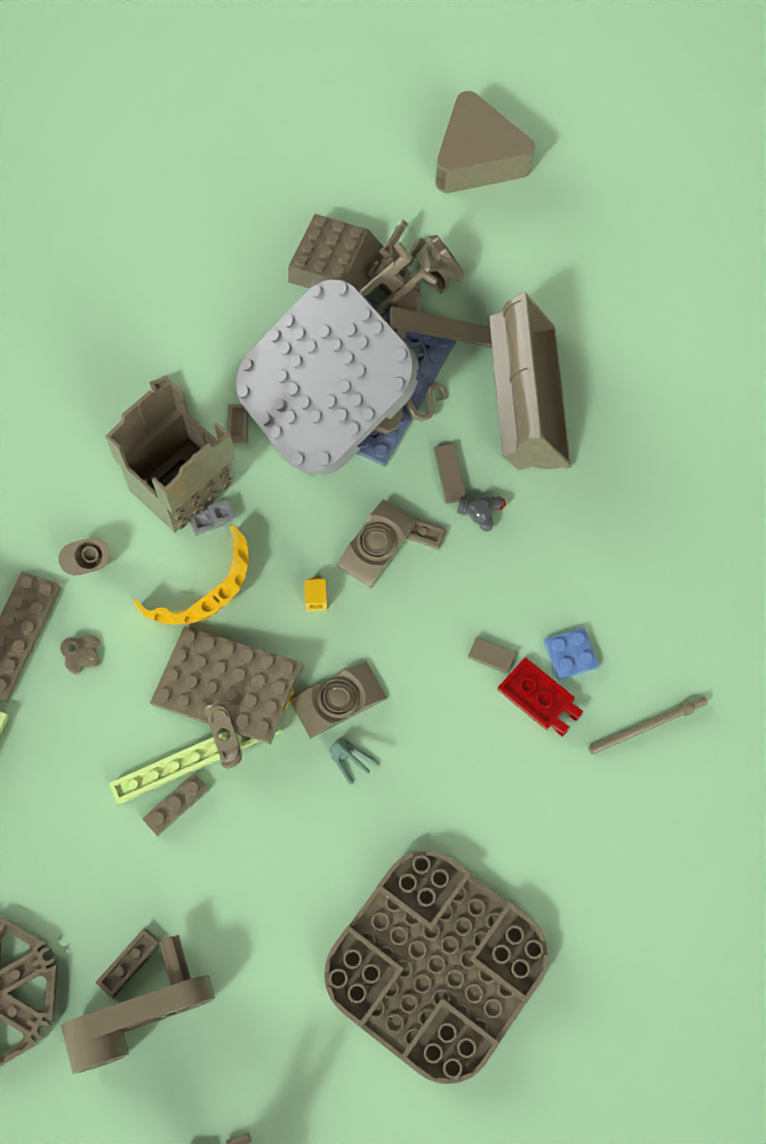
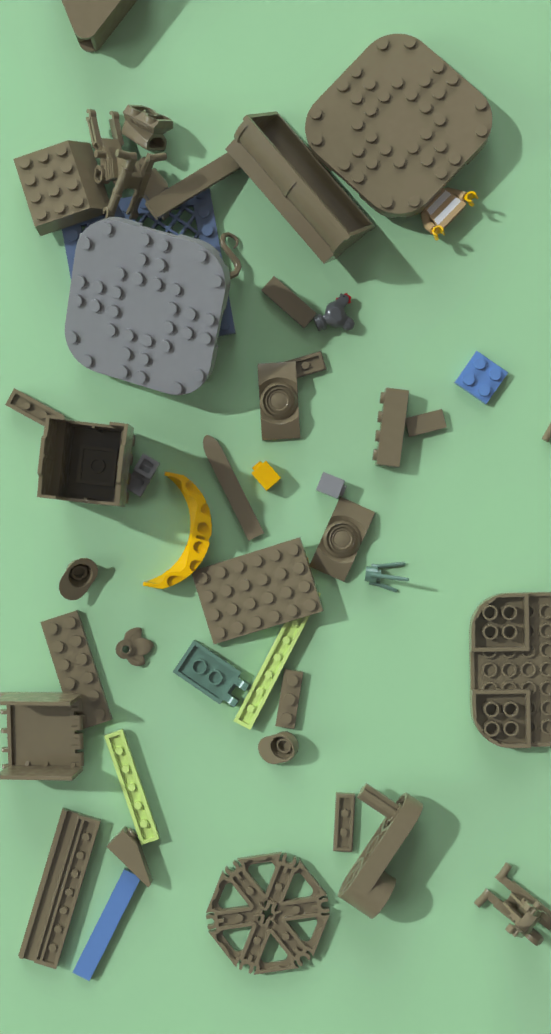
camera: 30 degrees left, 20 degrees up
(125, 727) = (210, 674): none -> sand green tile
(128, 840) = (278, 747): none -> dark tan cap
(229, 750) = (298, 636): dark tan piece -> none
(238, 423) = (99, 386): dark tan tile -> none
(277, 585) = (232, 488): none -> dark tan piece
(365, 644) = (331, 485): none -> light grey brick
(457, 635) = (391, 427): none -> dark tan brick
(539, 696) = (481, 428): red tile -> none
(641, 491) = (445, 209): none -> torso
(649, 403) = (398, 125): none -> dark tan plate

